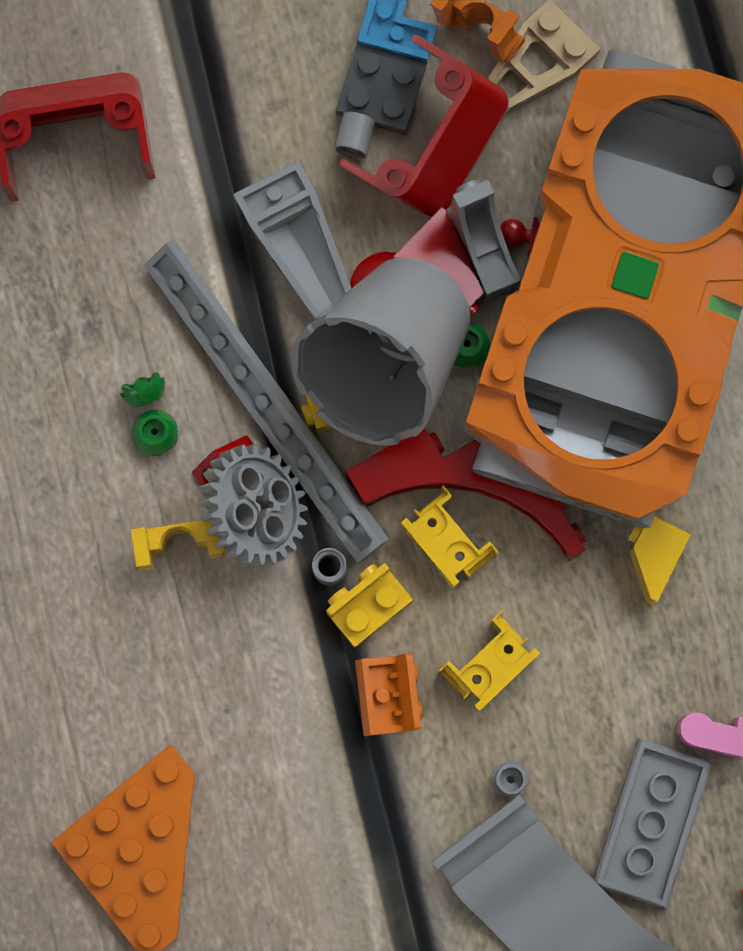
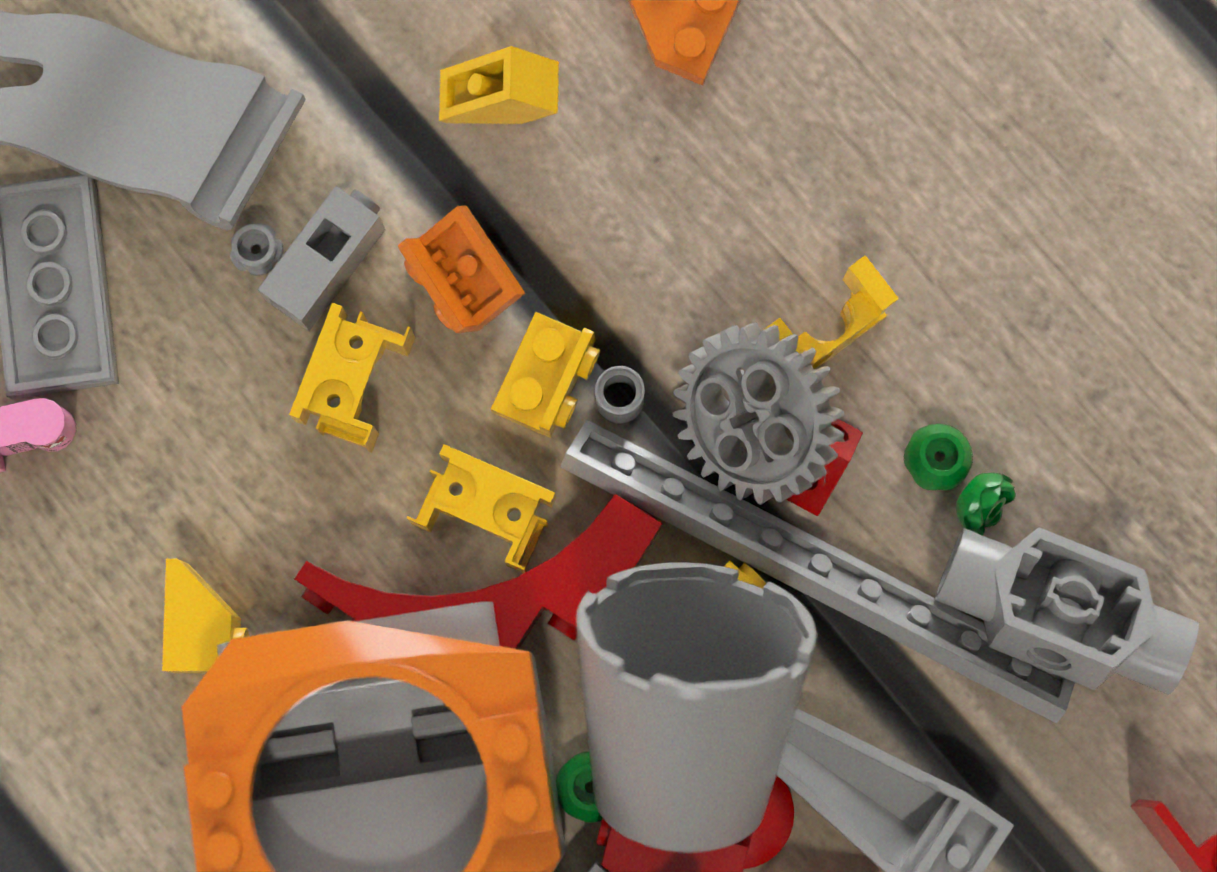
camera: 155 degrees right, 0 degrees up
(132, 300) = (1068, 610): none -> light grey brick
(305, 803) = (500, 88): none -> yellow slope
(470, 749) = (323, 256): none -> light grey brick

